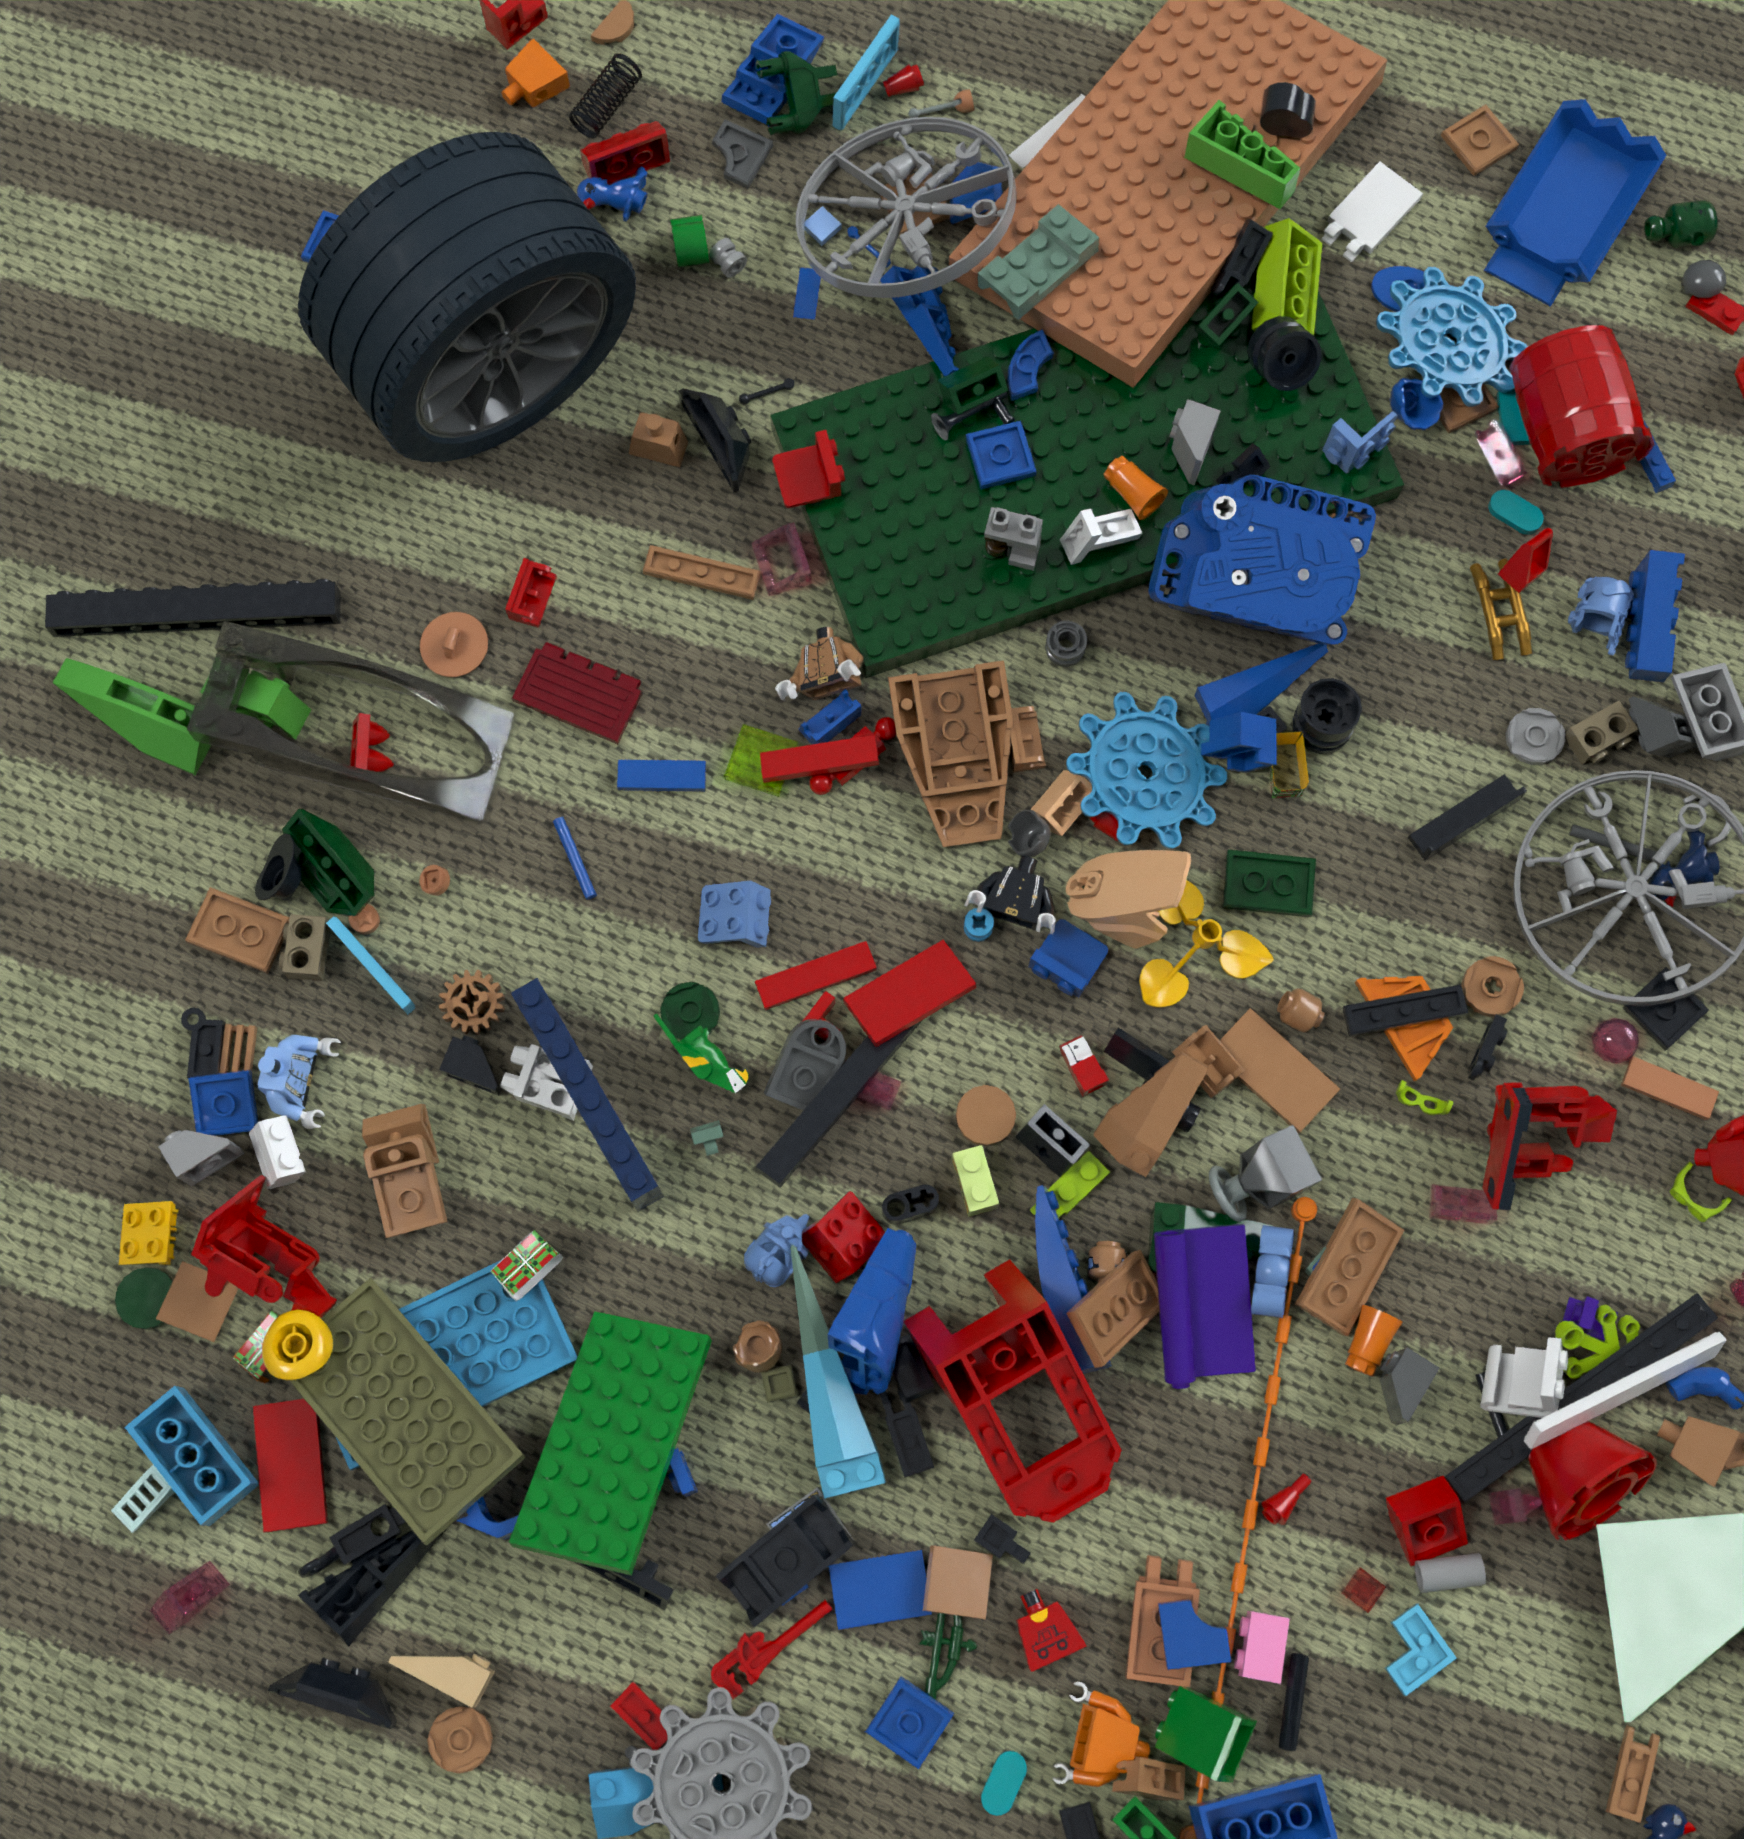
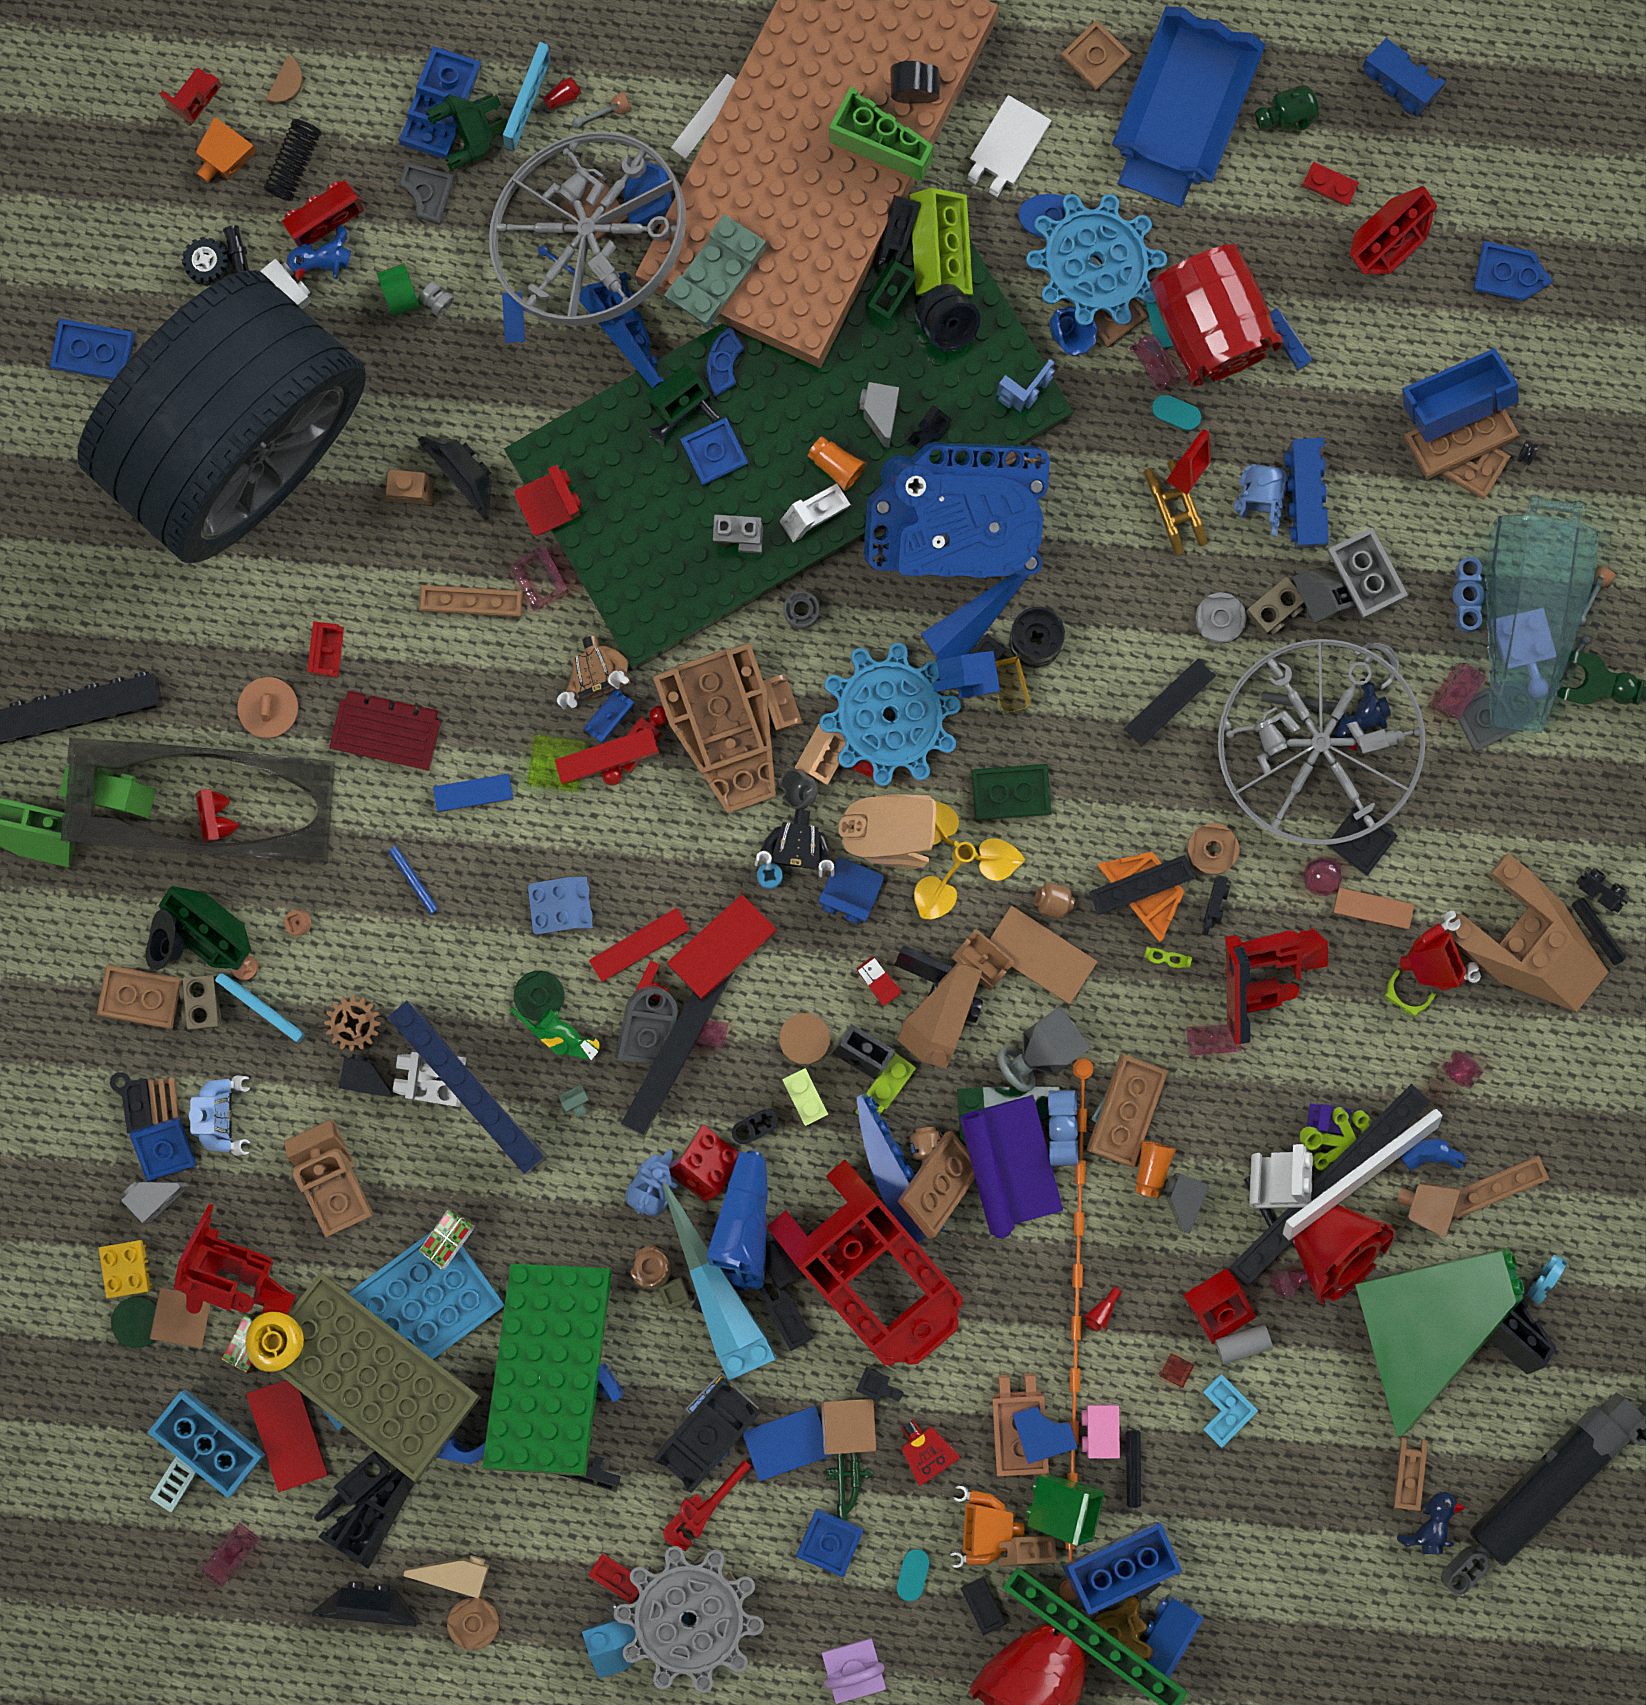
camera: 10 degrees left, 10 degrees up
(277, 1152) = (217, 1182): white brick -> none
(788, 384) = (513, 409): black hinge -> none
(822, 226) = (514, 250): light blue tile -> none
(1704, 279) = (1314, 161): dark grey hair -> none

